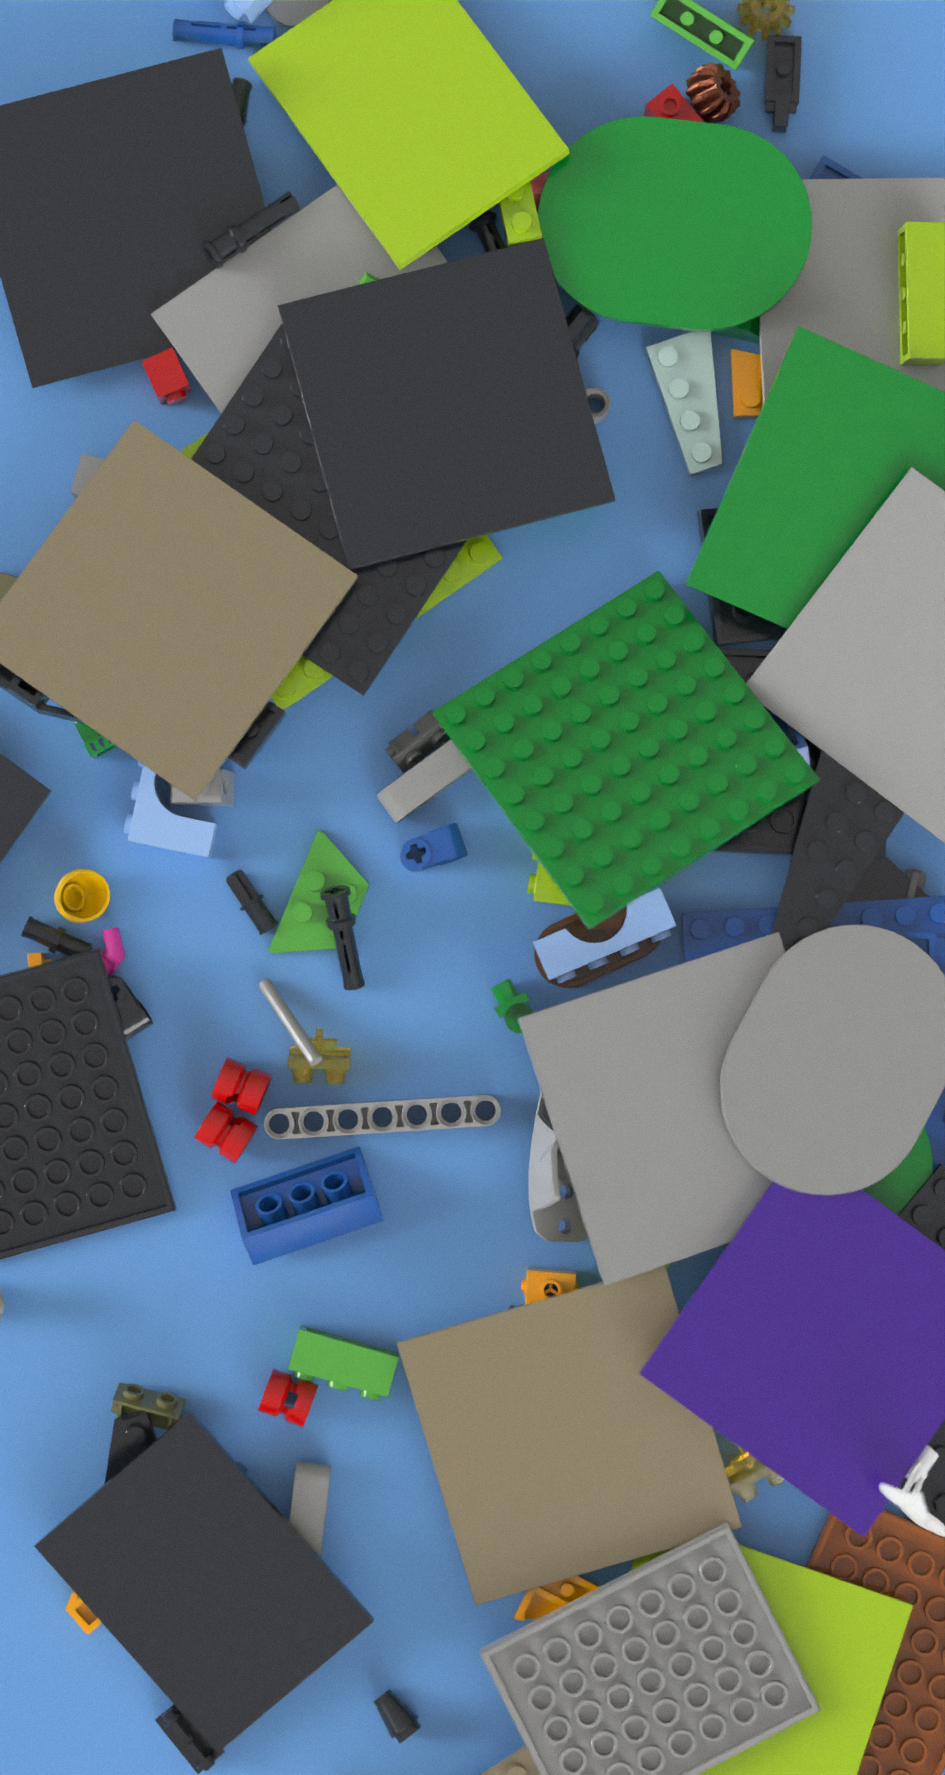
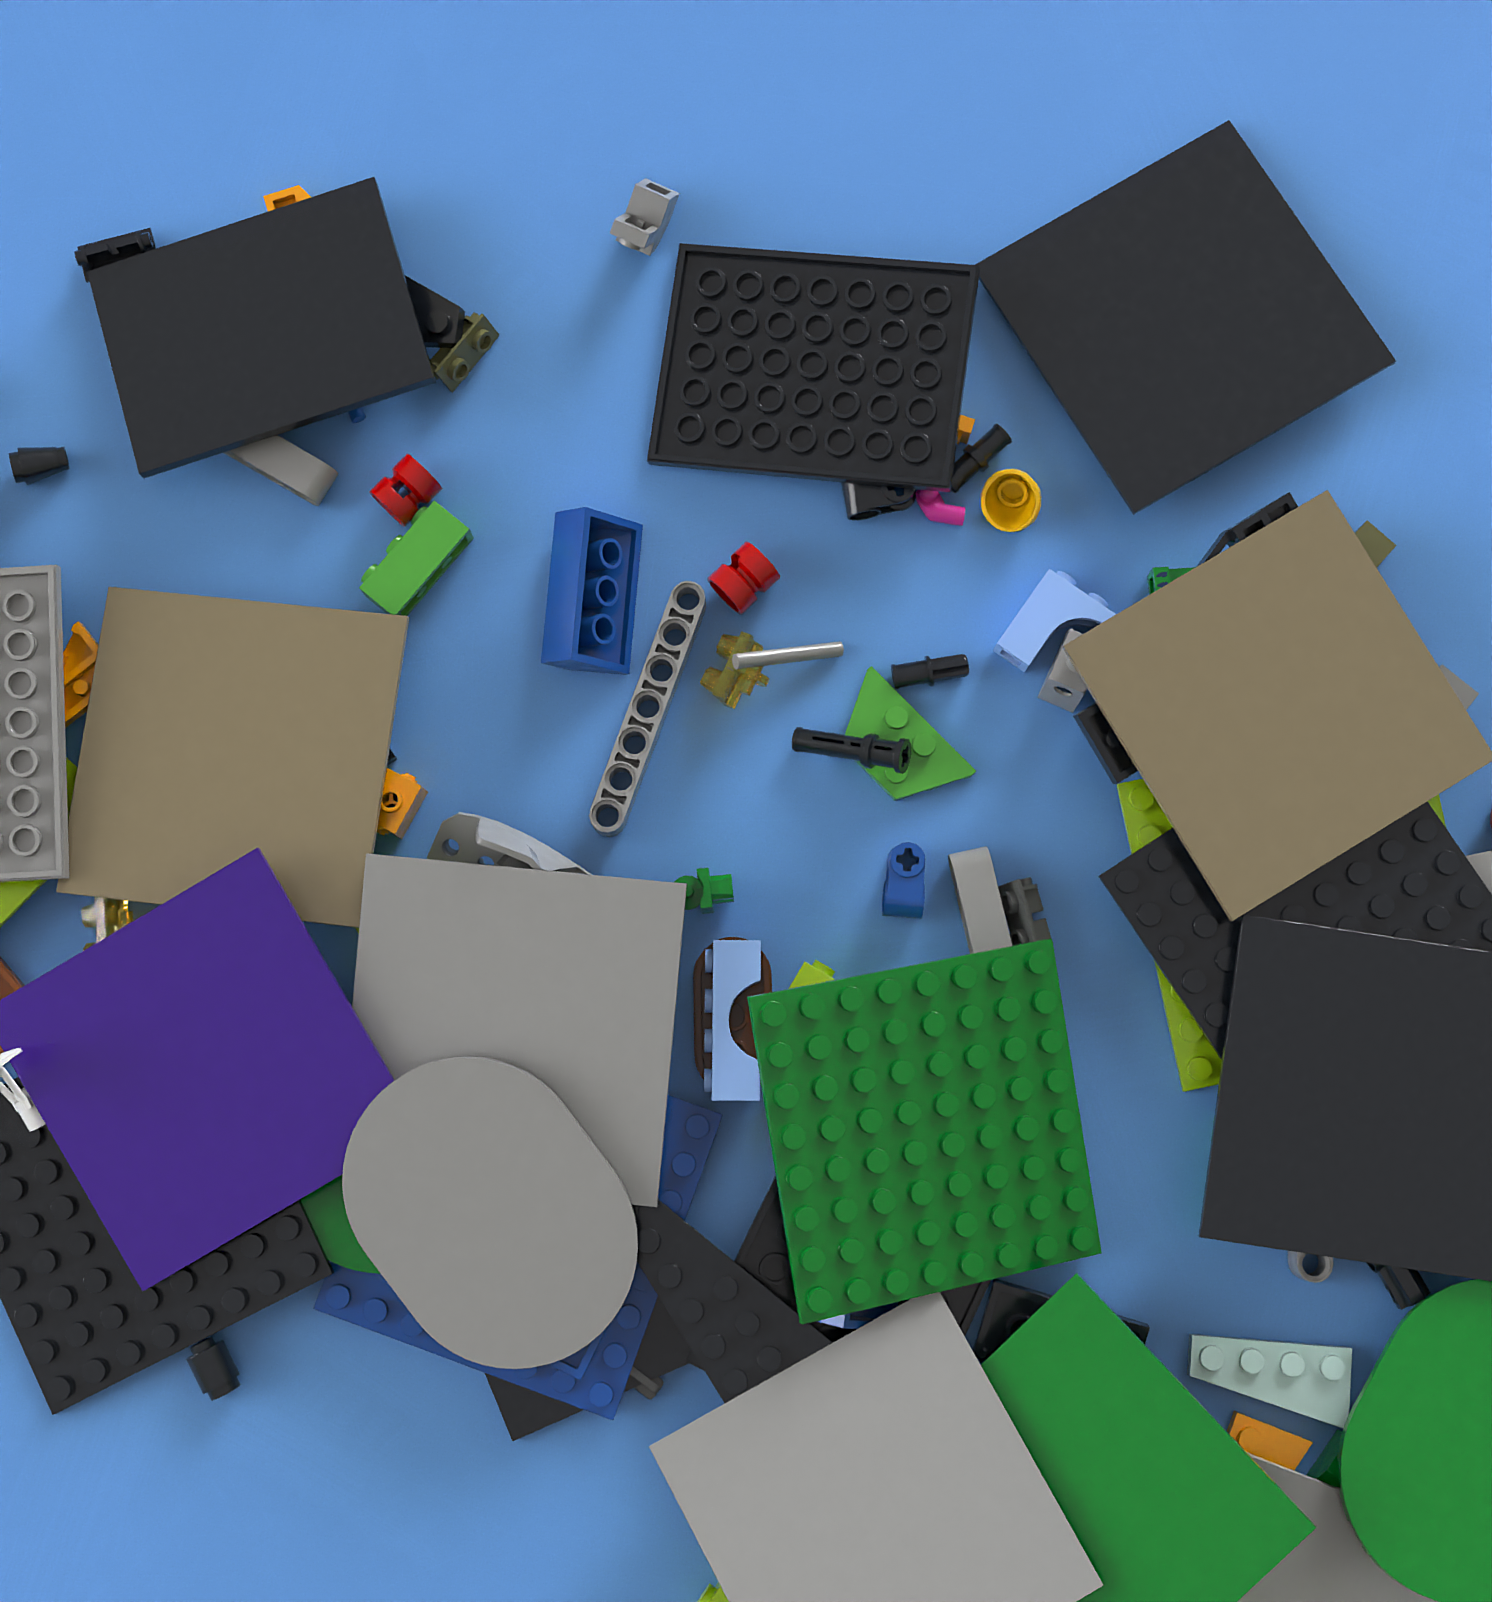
camera: 120 degrees right, 5 degrees down
(226, 1132) = (703, 543): red wheel -> none

